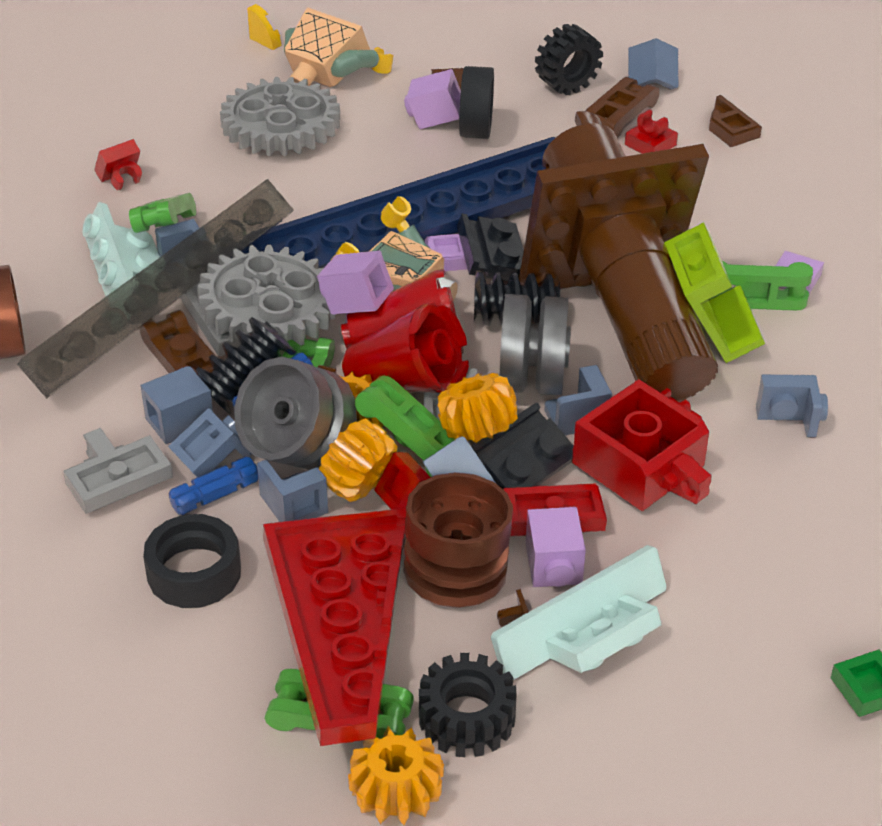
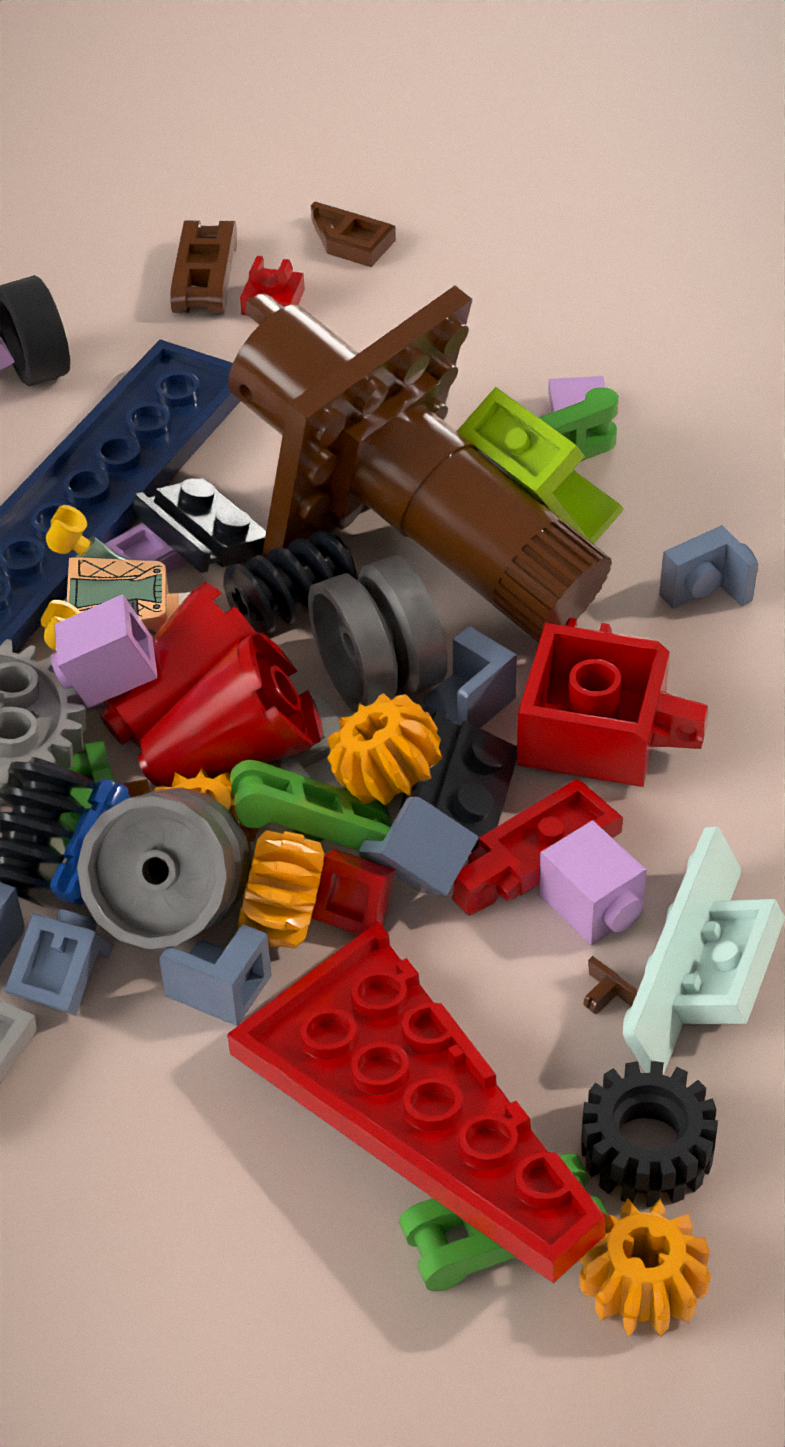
camera: 30 degrees left, 5 degrees up
(198, 587) = (158, 1083): black tyre -> none
(213, 485) = (104, 1014): blue axle -> none
(457, 539) = (490, 931): copper wheel -> none
(557, 51) = (100, 224): black tyre -> none
(654, 63) = (204, 190): sand blue panel -> none

